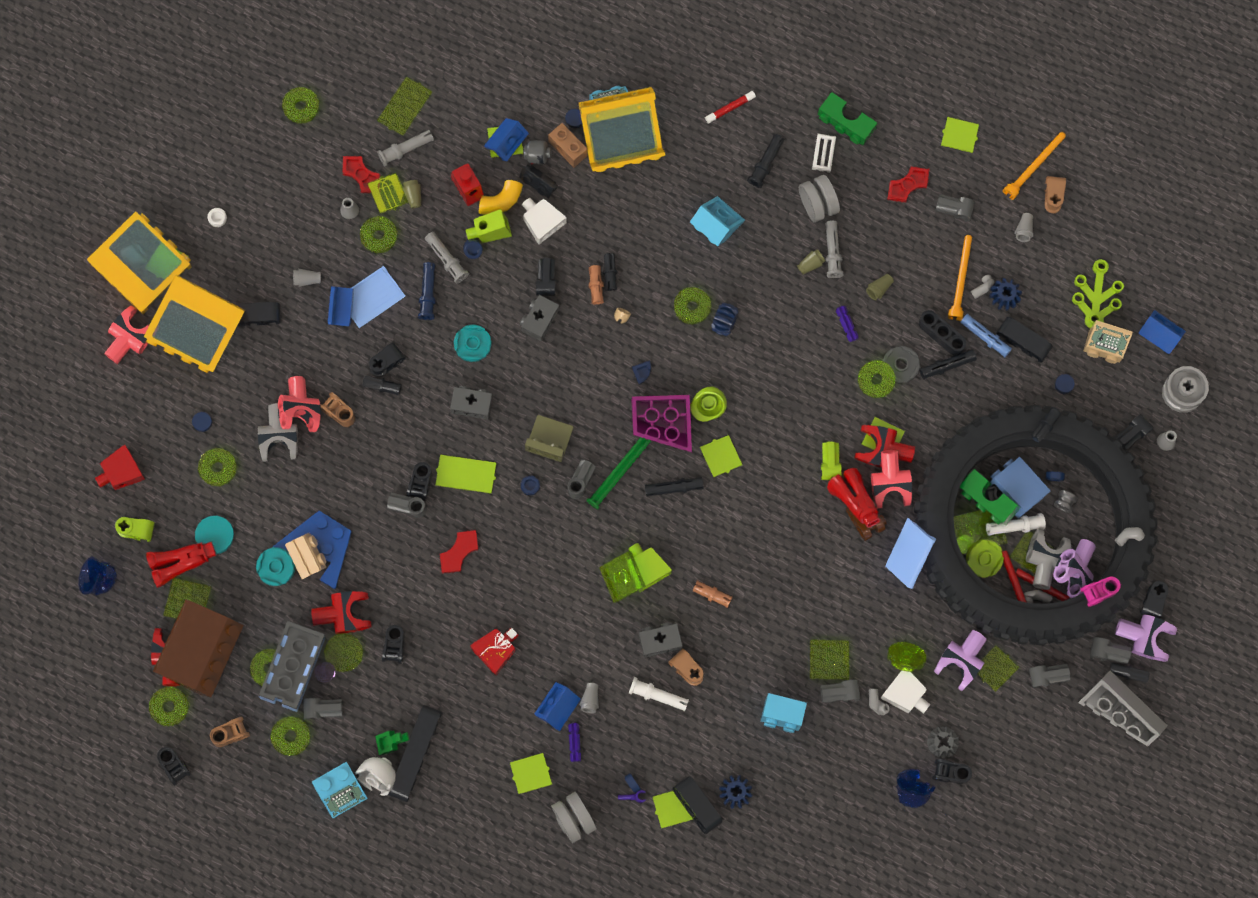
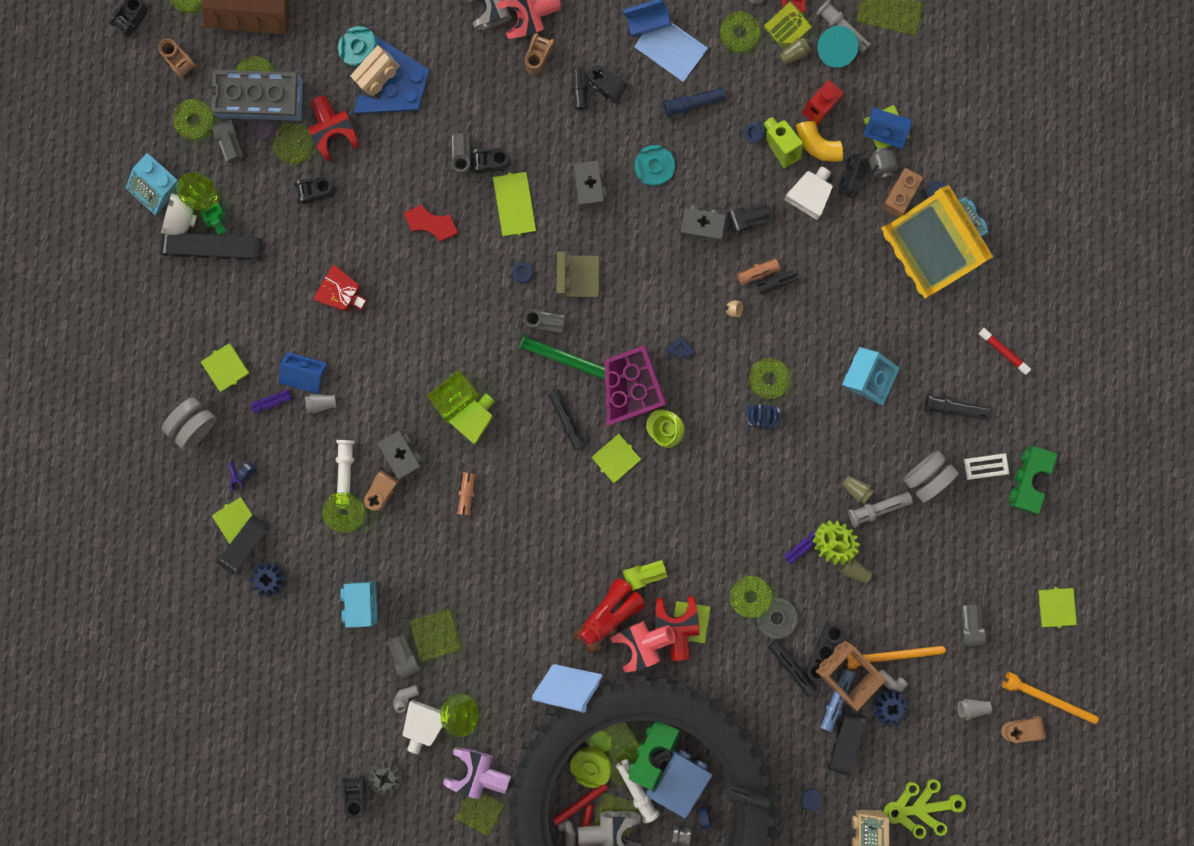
camera: 80 degrees right, 10 degrees up
(361, 749) = (196, 191): none -> clear neon green tile
(421, 157) = (838, 46): none -> teal tile
(450, 263) = (732, 115): light grey pin -> none
(706, 705) = (343, 523): none -> clear neon green tile
(851, 293) = (836, 542): none -> lime gear
(912, 792) = (321, 761): clear blue helmet -> none
(914, 180) = (990, 574): red tile -> none
(982, 308) = (864, 688): none -> medium nougat window

